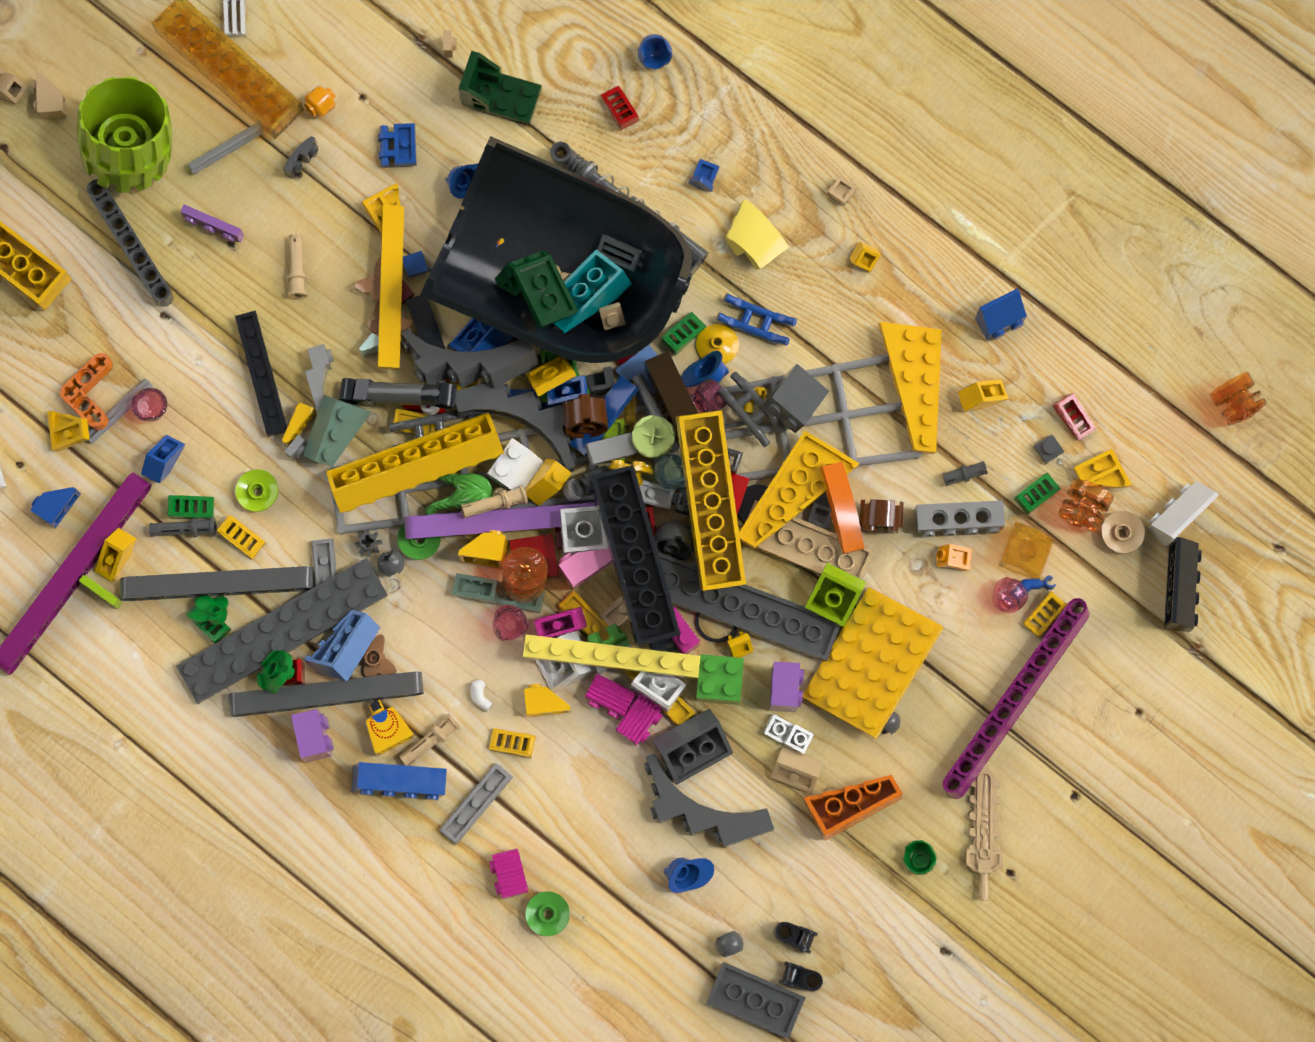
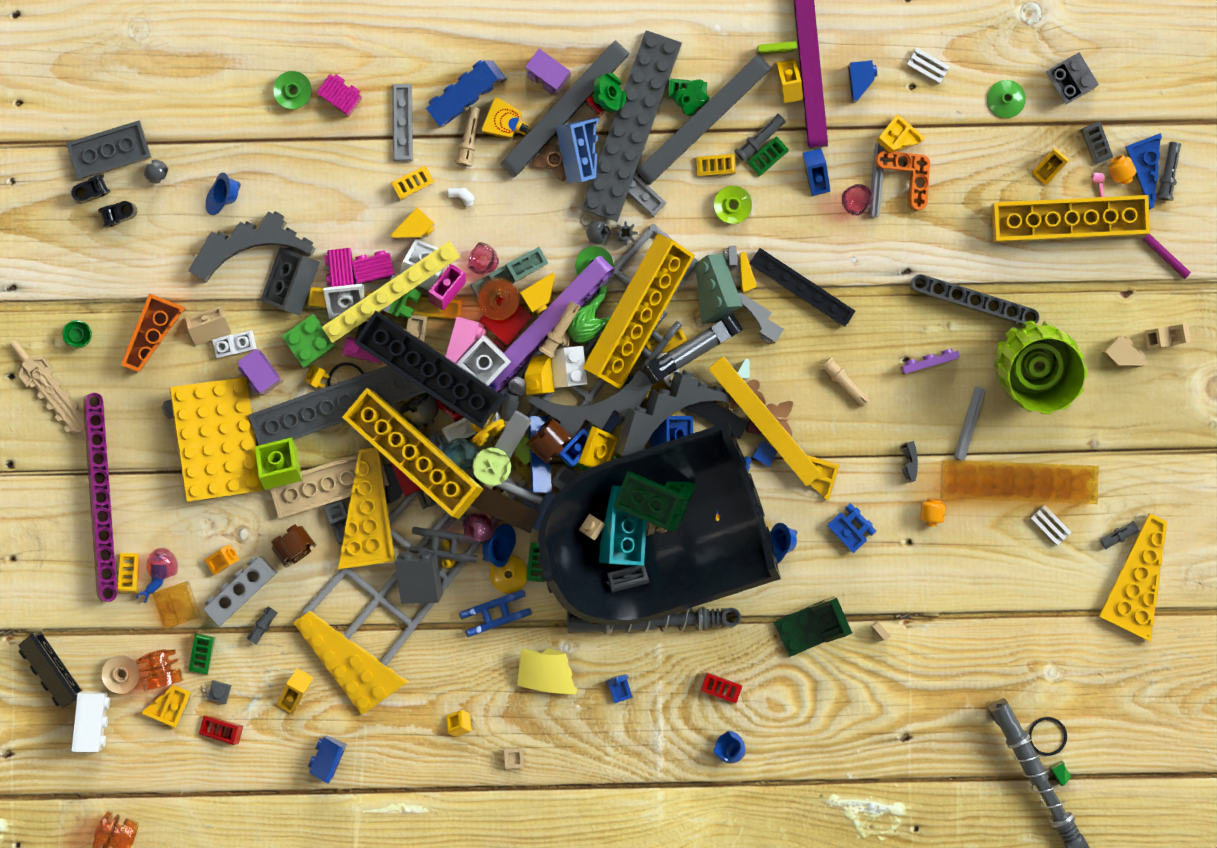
camera: 140 degrees right, 10 degrees up
(843, 508) = (323, 528): orange slope -> none

